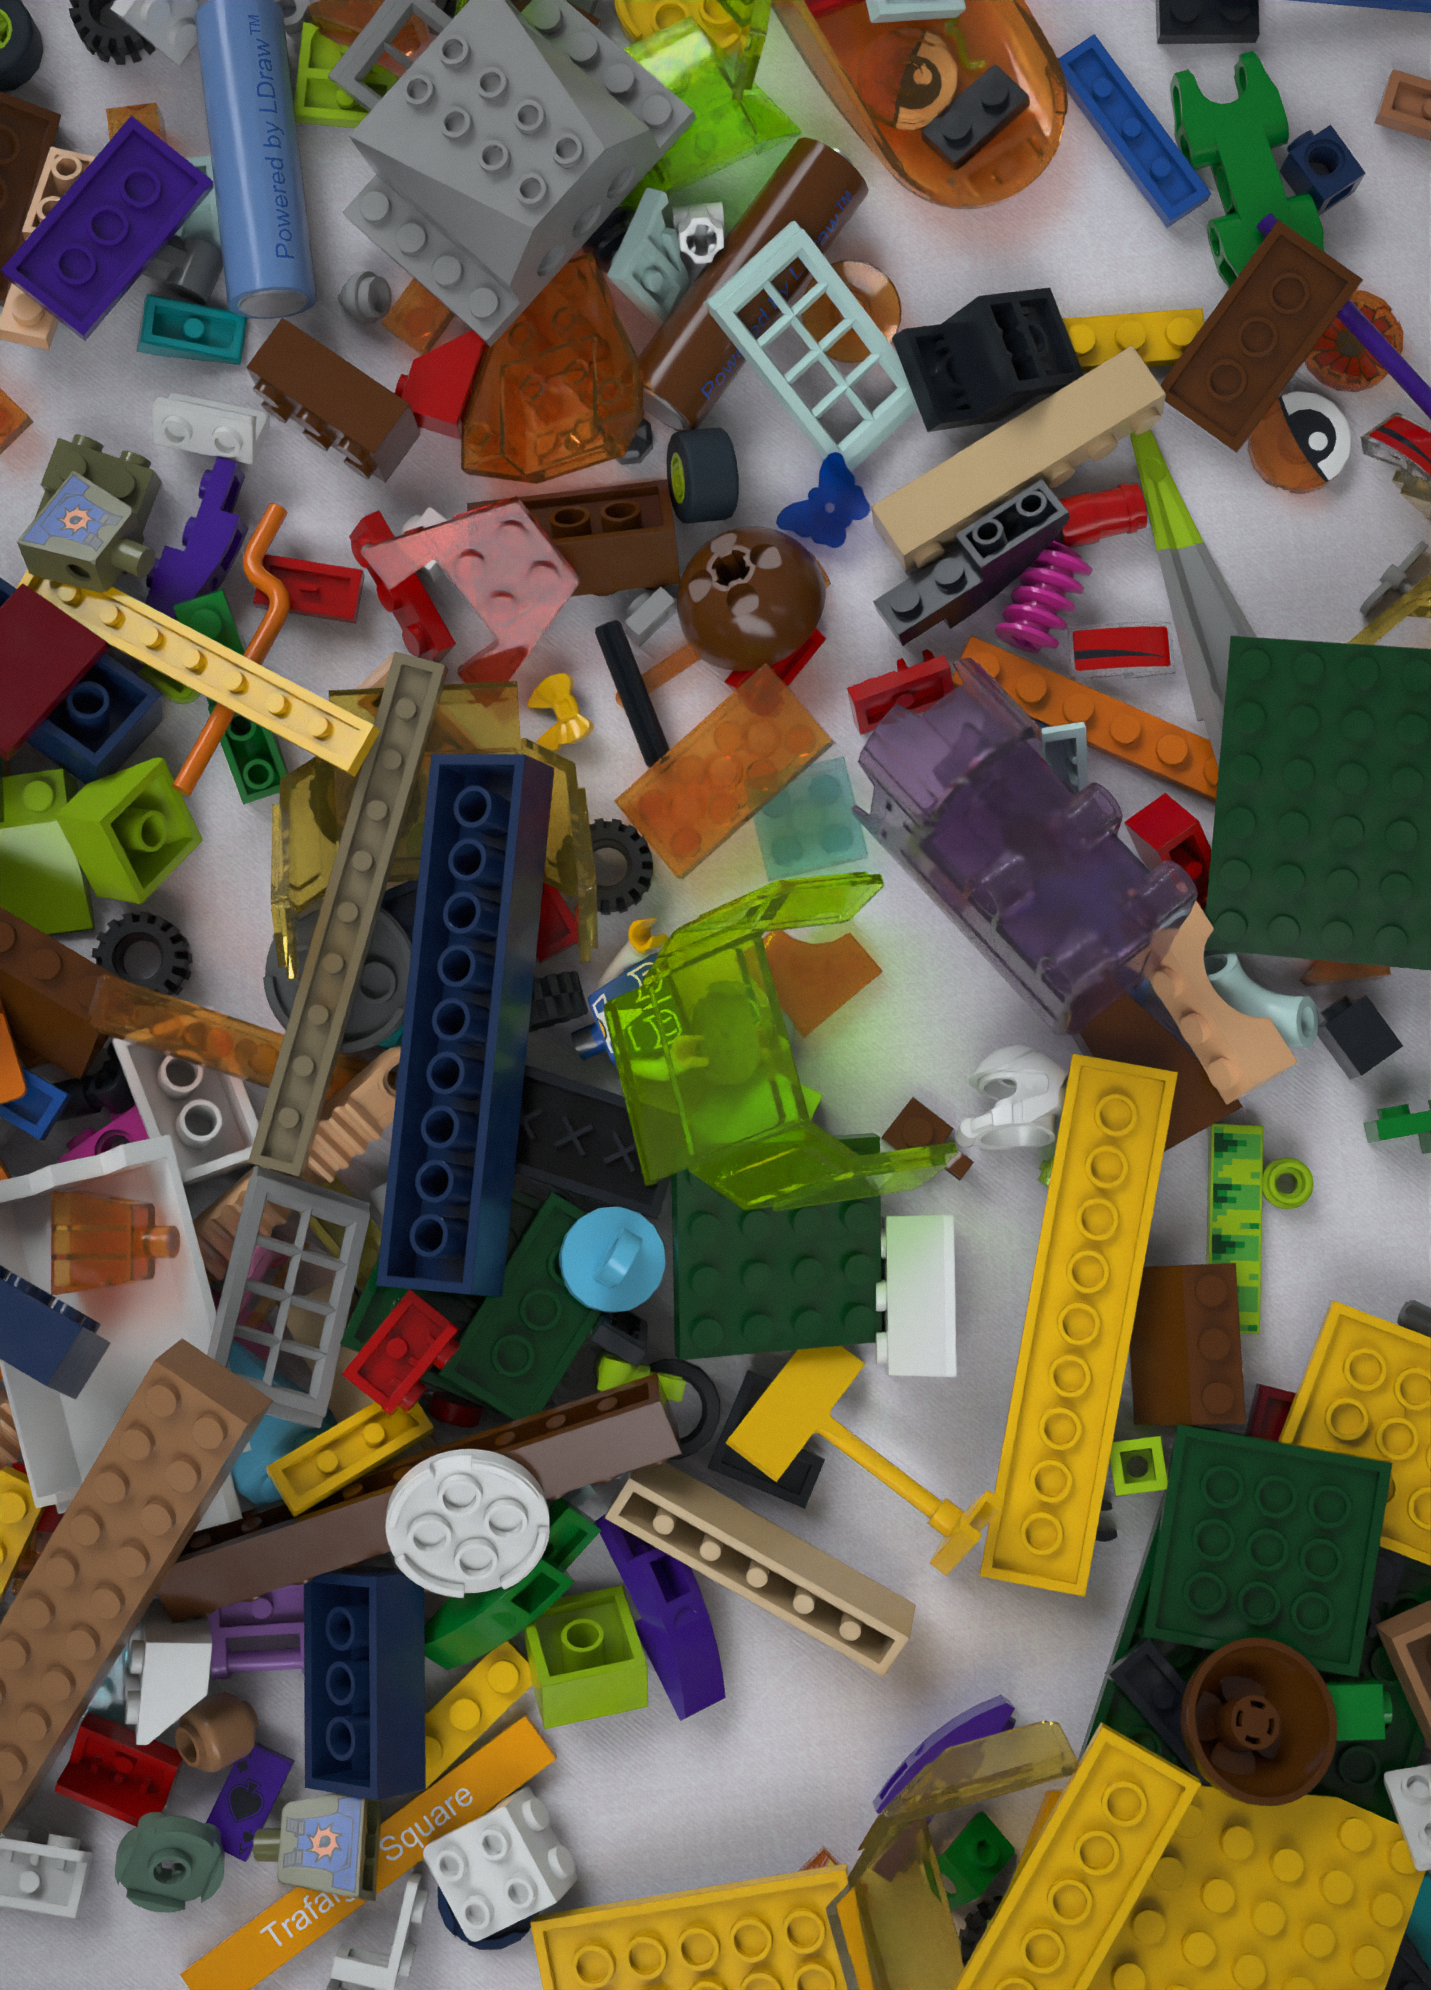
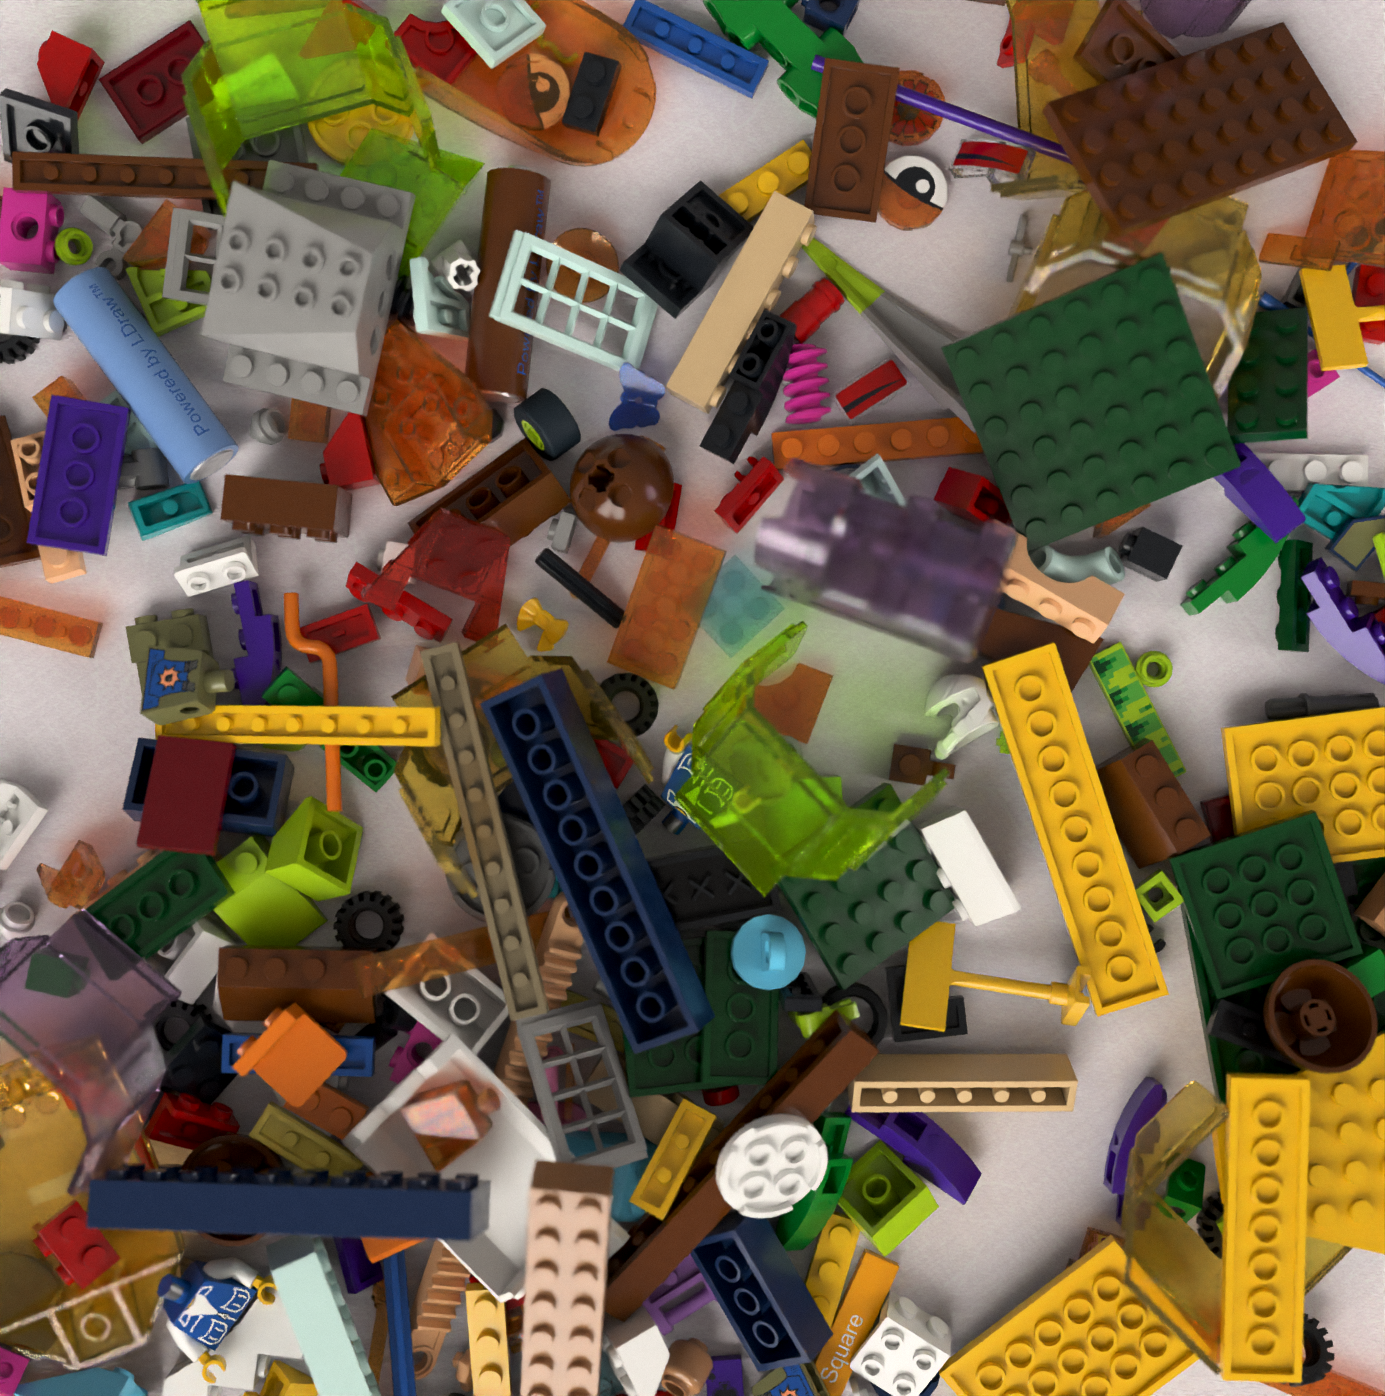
camera: 30 degrees left, 5 degrees up
(402, 1354) = (673, 1084): red bracket -> none

